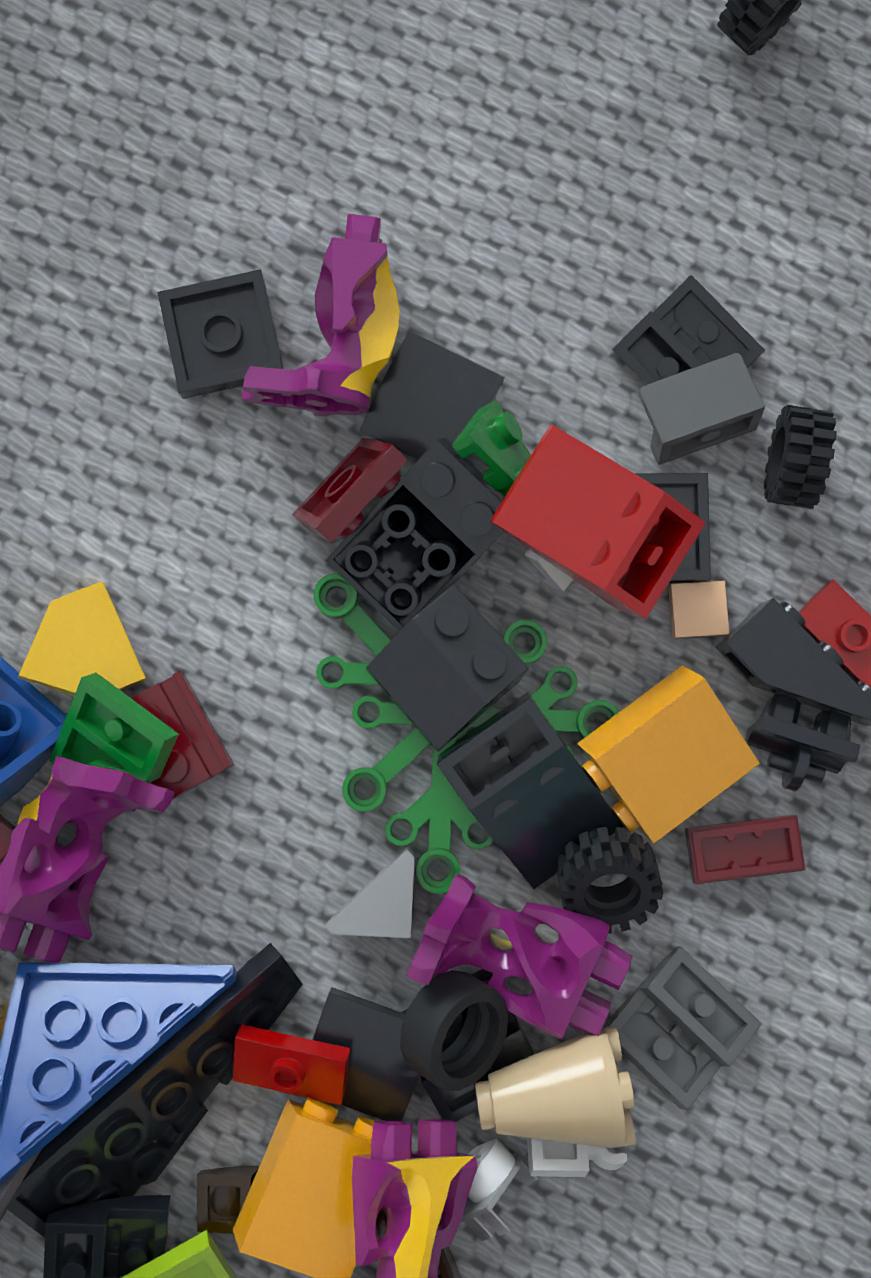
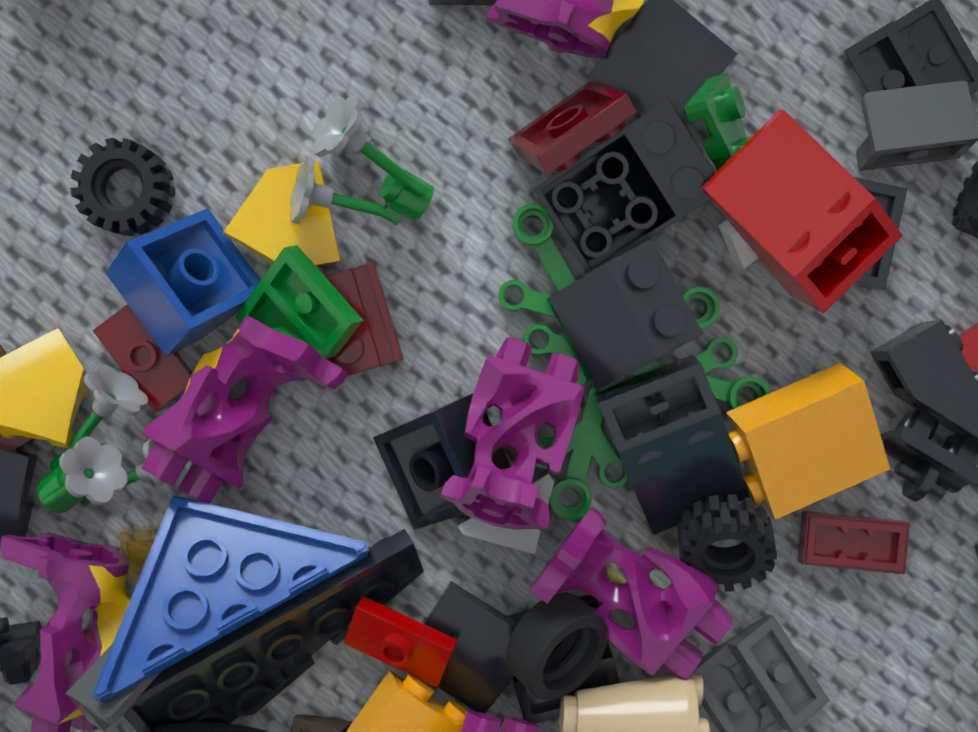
camera: 10 degrees right, 5 degrees up
(114, 541) = (401, 190): none -> plant
(299, 861) = (426, 455): none -> black slope
(365, 779) = (527, 402): none -> magenta hips
(698, 609) = (865, 315): light nougat tile -> none

